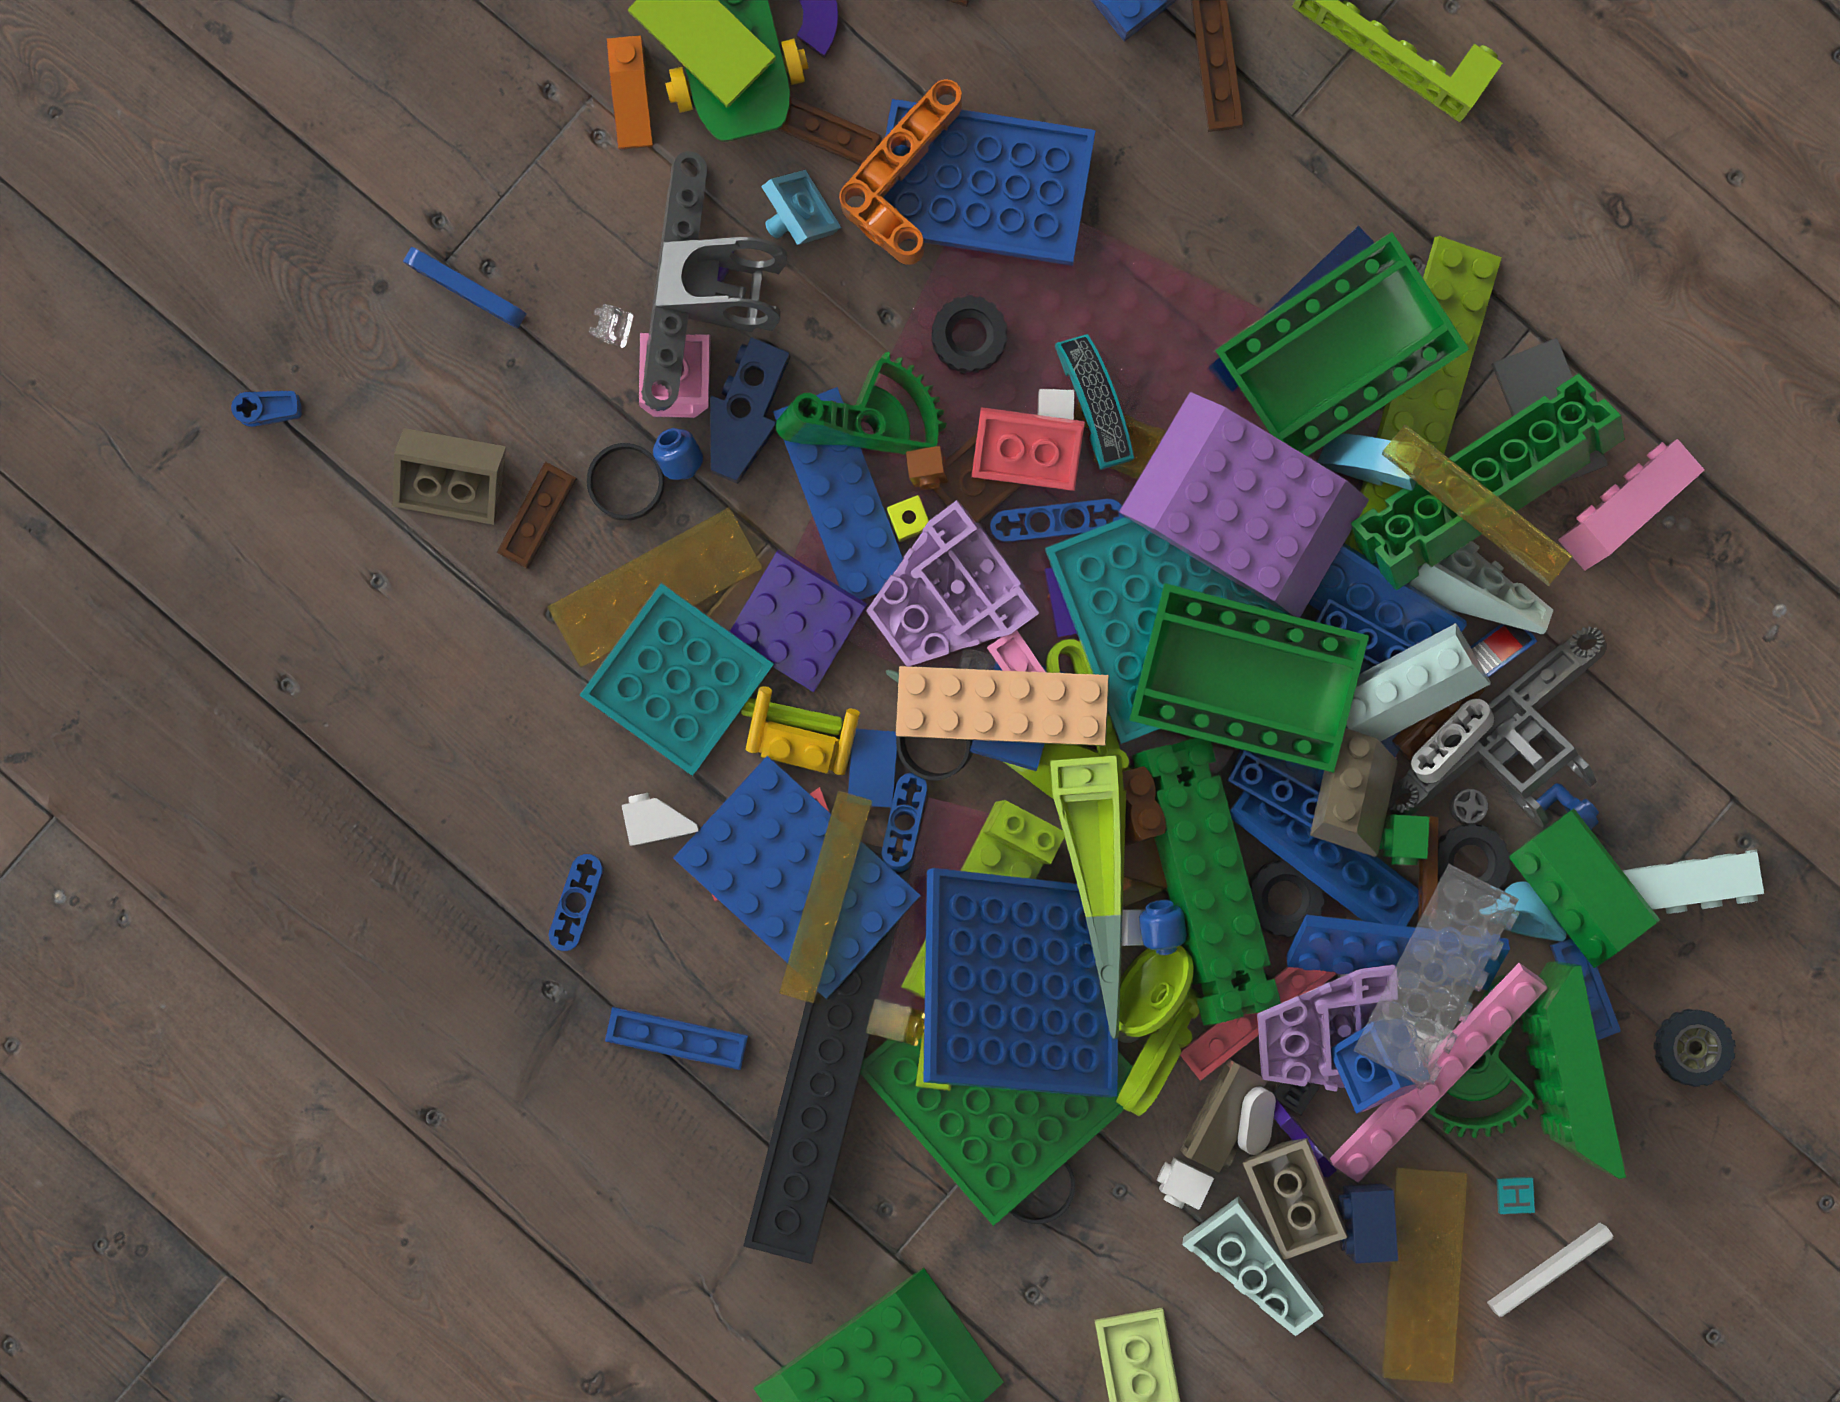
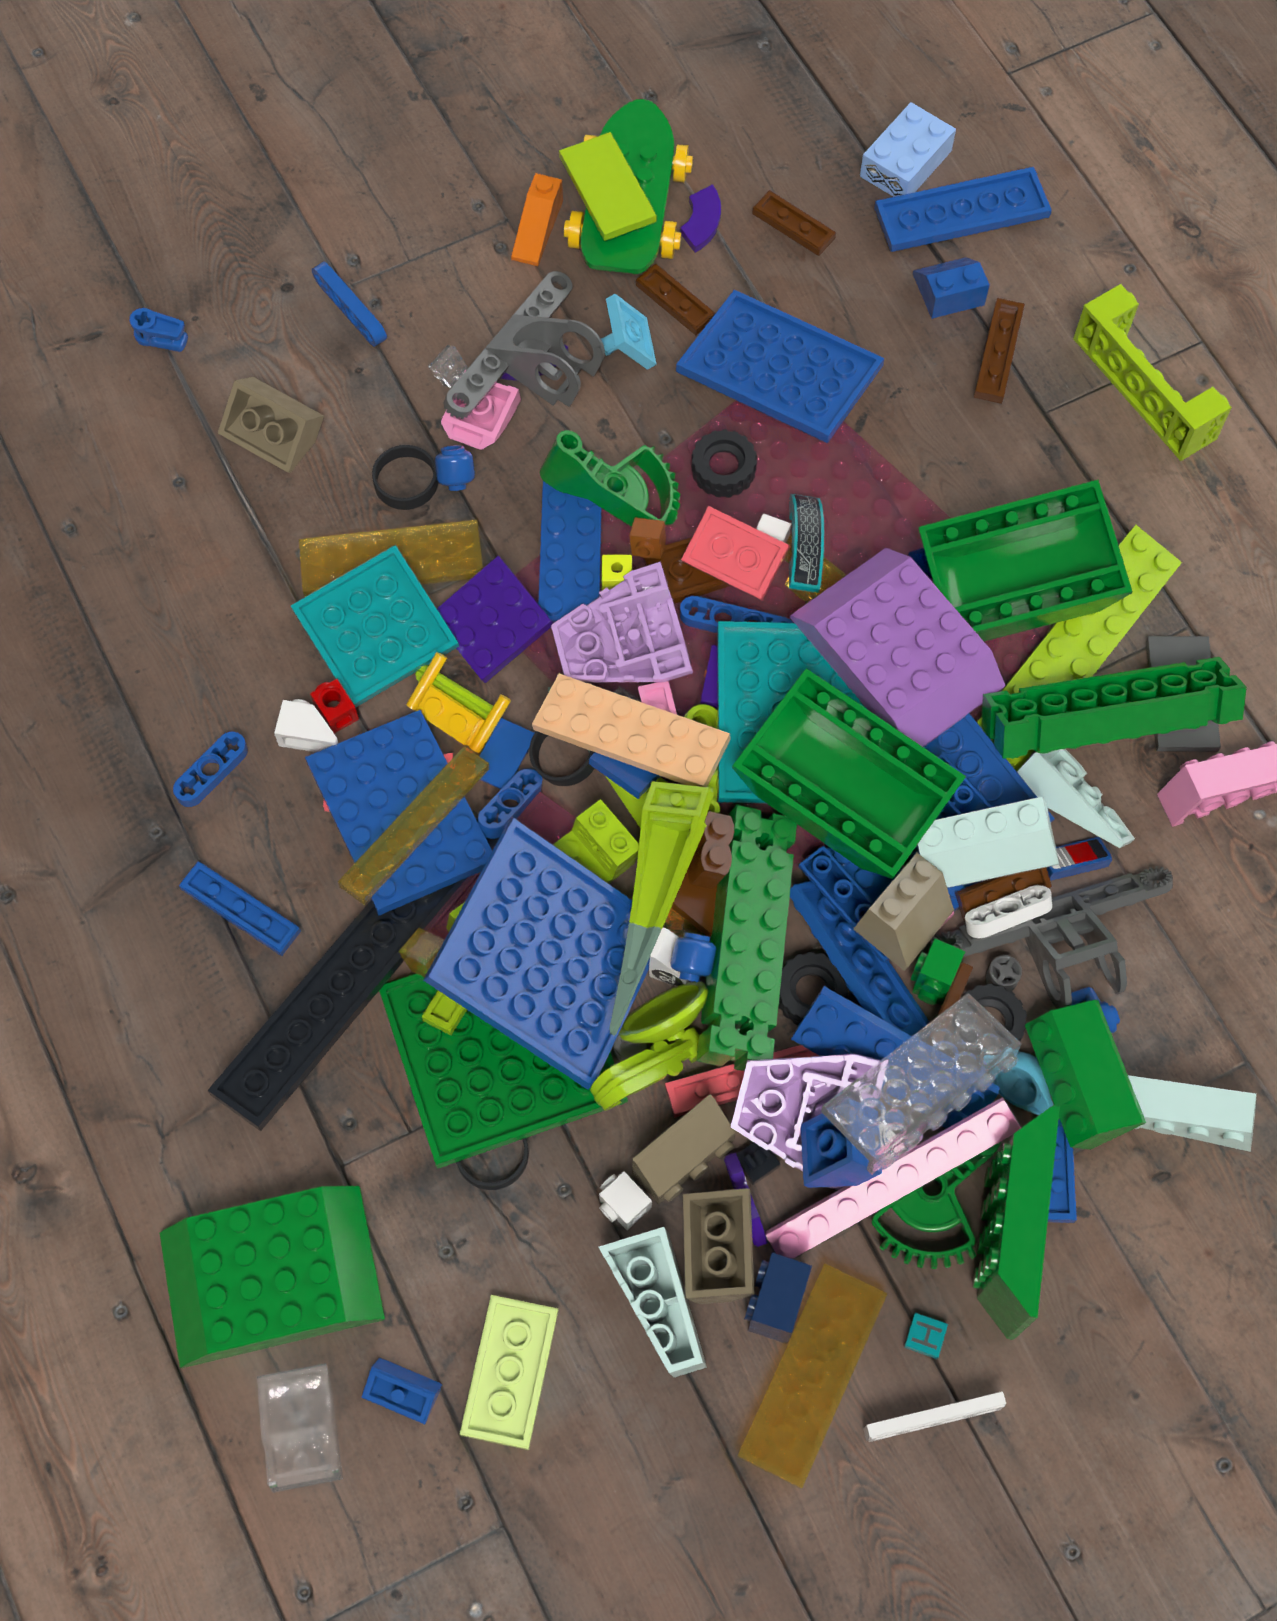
camera: 25 degrees right, 20 degrees down
(536, 515) = (324, 477): reddish brown tile -> none
(687, 789) = (340, 715): none -> red brick
(740, 440) = (510, 478): dark blue brick -> none
(883, 169) = (715, 320): orange beam -> none
(1256, 1120) = (711, 1162): white tile -> none
(1363, 459) = (1027, 659): medium azure slope -> none
(1477, 505) = (1098, 704): clear yellow plate -> none
(1706, 1064) = (1159, 1257): black wheel -> none

